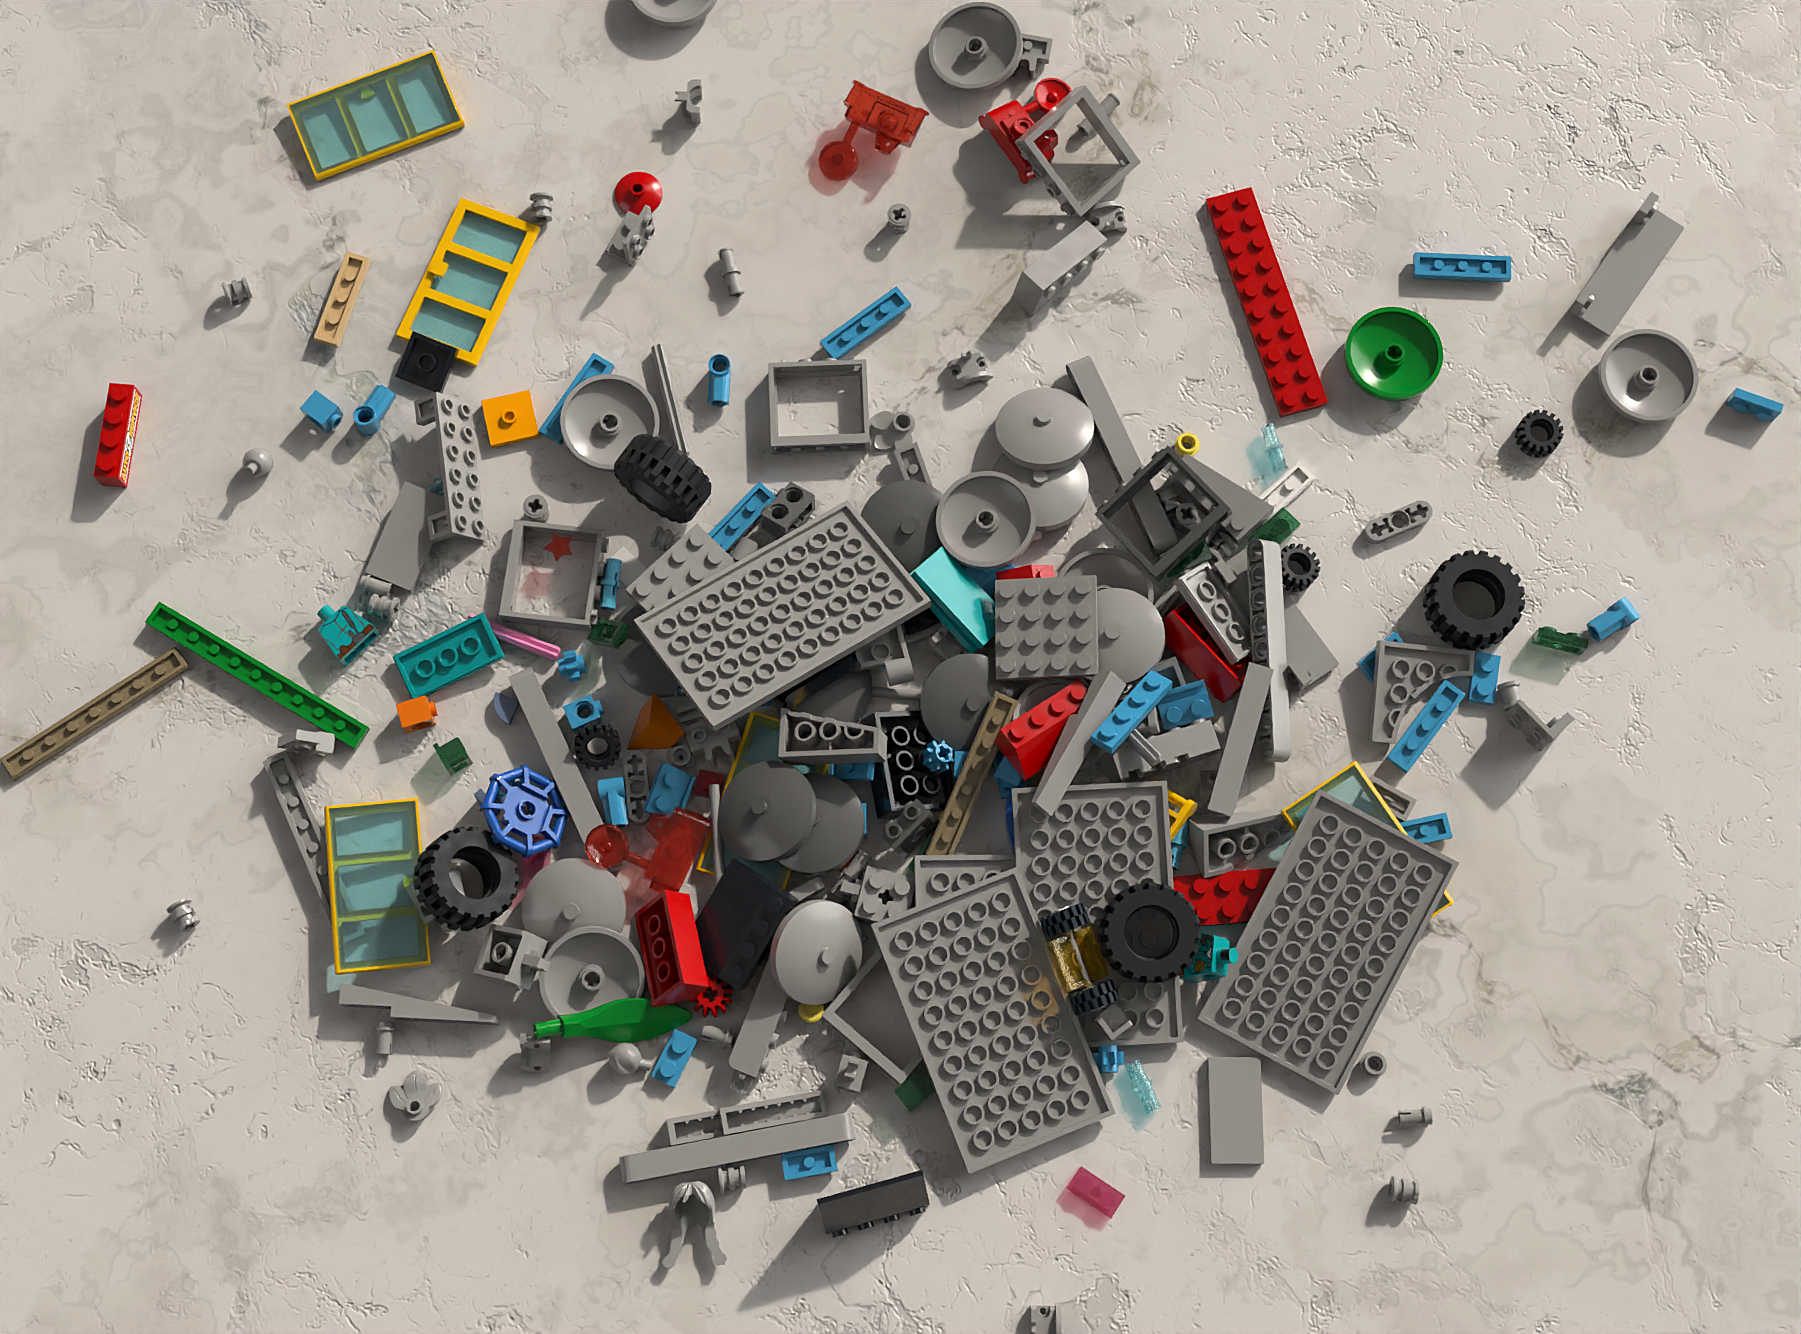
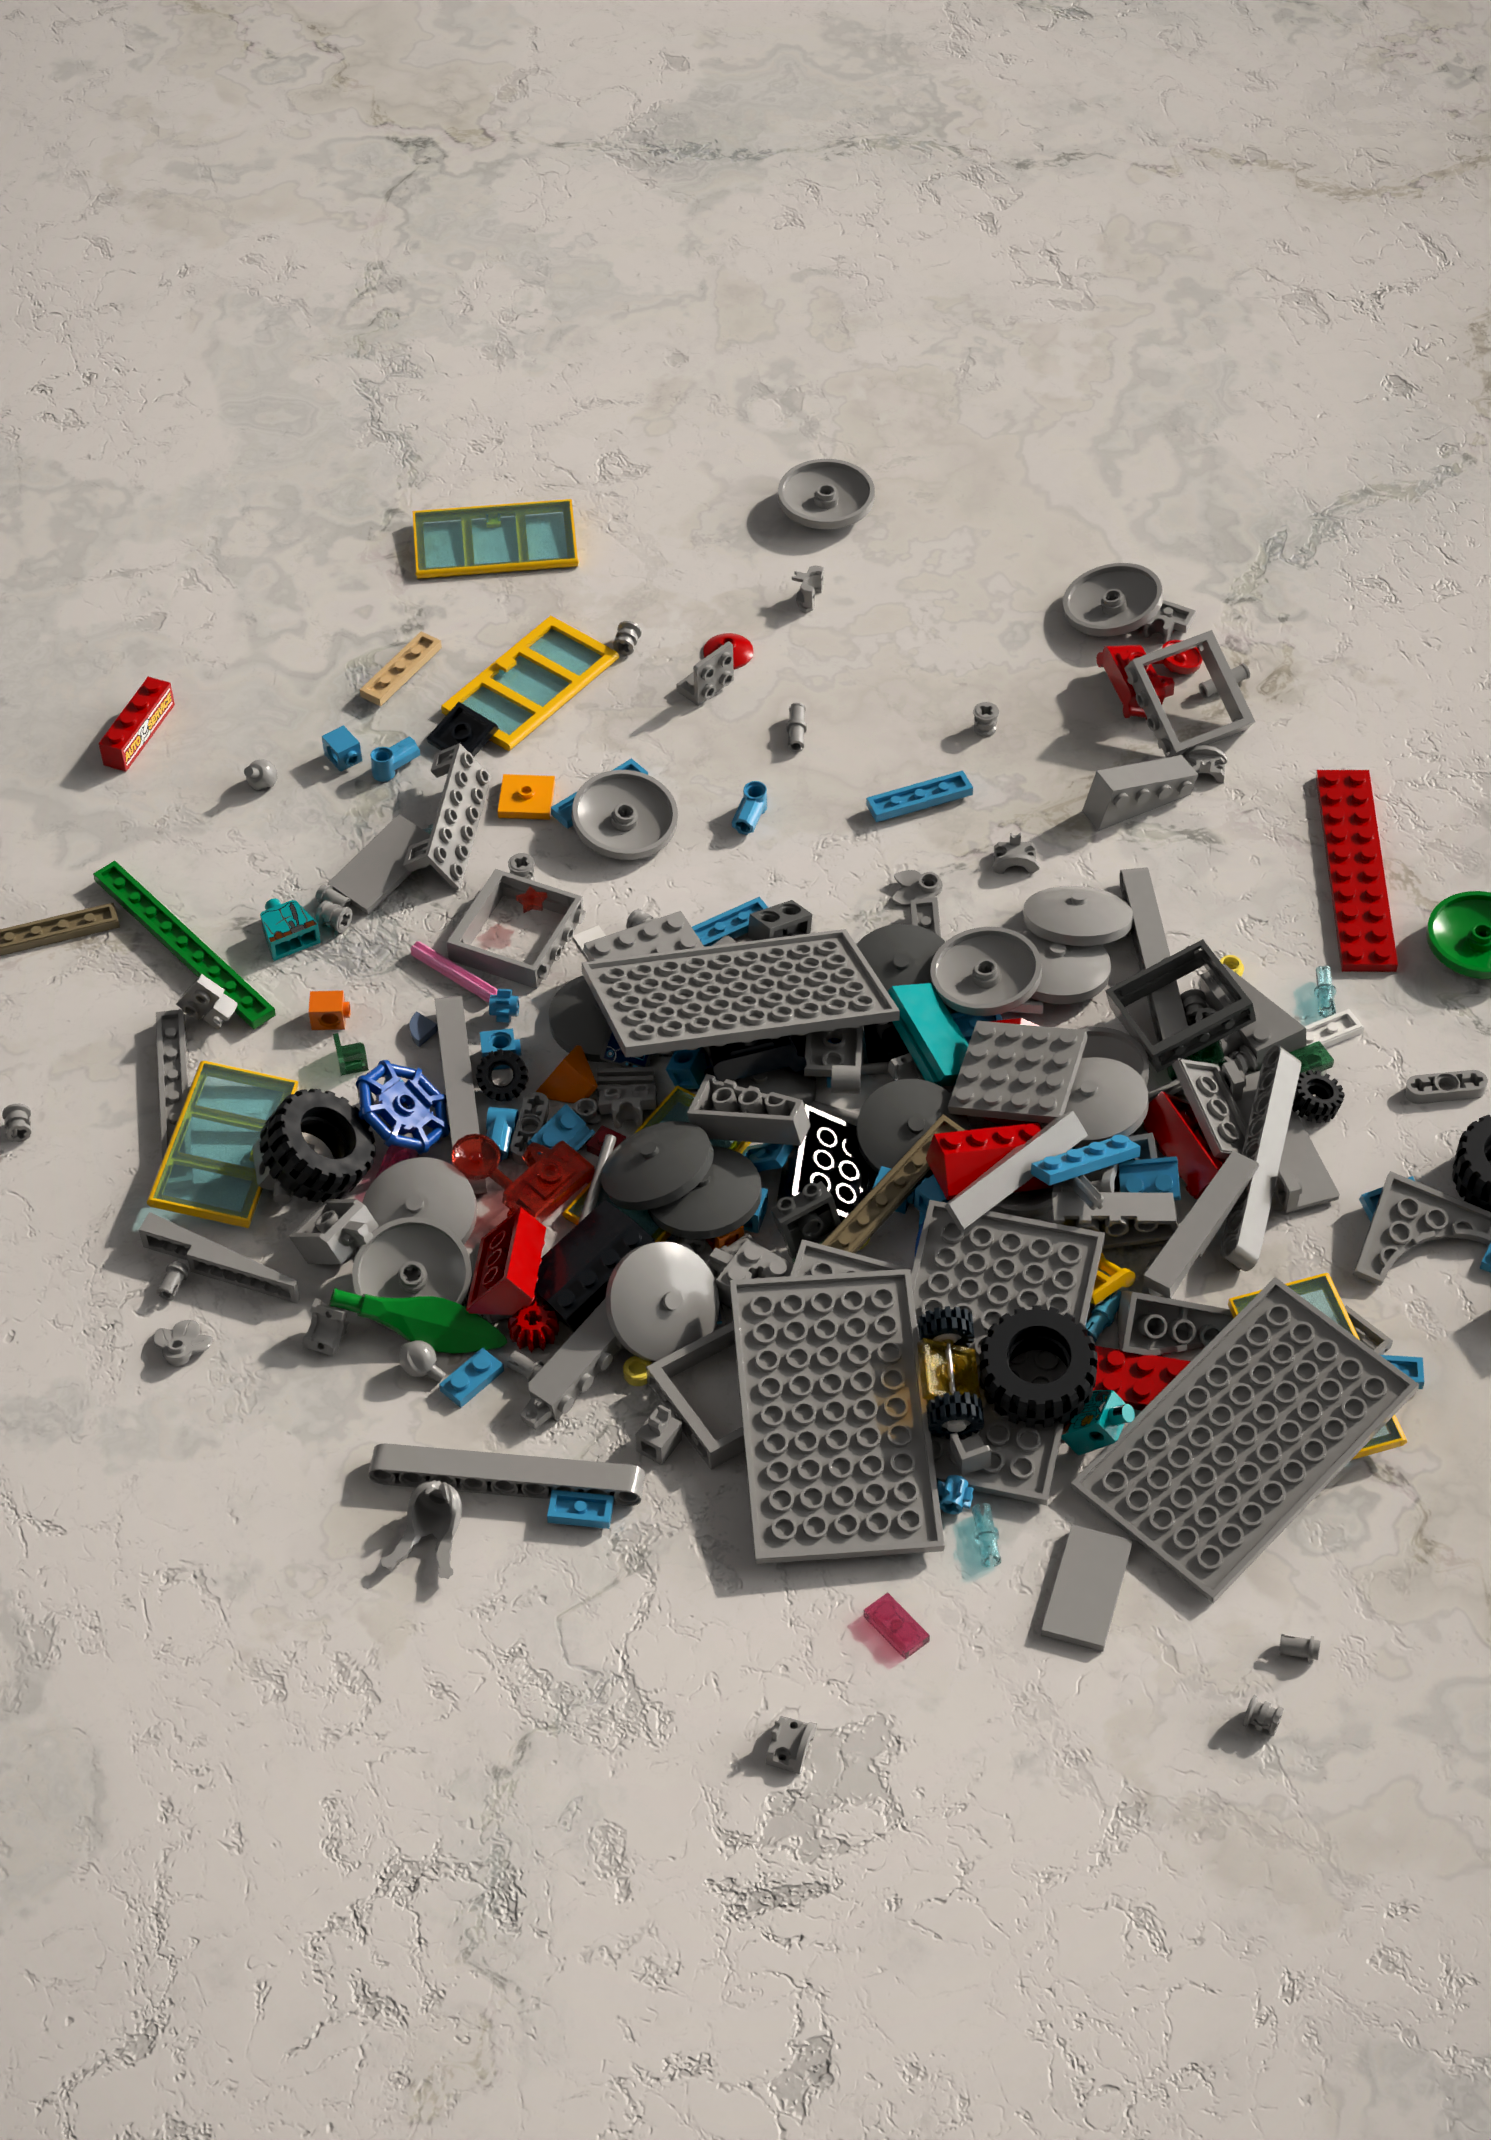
camera: 20 degrees right, 25 degrees down
(236, 290) = (302, 640): light grey bush -> none
(449, 656) = (383, 970): teal tile -> none
(608, 633) = (553, 984): clear green plate -> none
(610, 584) = (572, 949): medium azure pin -> none
(662, 478) = (659, 858): black tyre -> none
(670, 398) = (694, 817): light grey axle -> none
(732, 1178) = (489, 1500): light grey bush -> none
(745, 1118) = (524, 1443): light grey slope -> none
(818, 443) = (837, 880): light grey window -> none
(873, 1203) = (636, 1549): black slope -> none
(878, 113) = (989, 627): clear red piece -> none
(914, 1091) = (724, 1470): clear green panel -> none
(937, 756) = (861, 1166): dark azure gear -> none
(1379, 1059) = (1268, 1576): light grey plate -> none
(1425, 726) = (1422, 1275): dark azure plate -> none

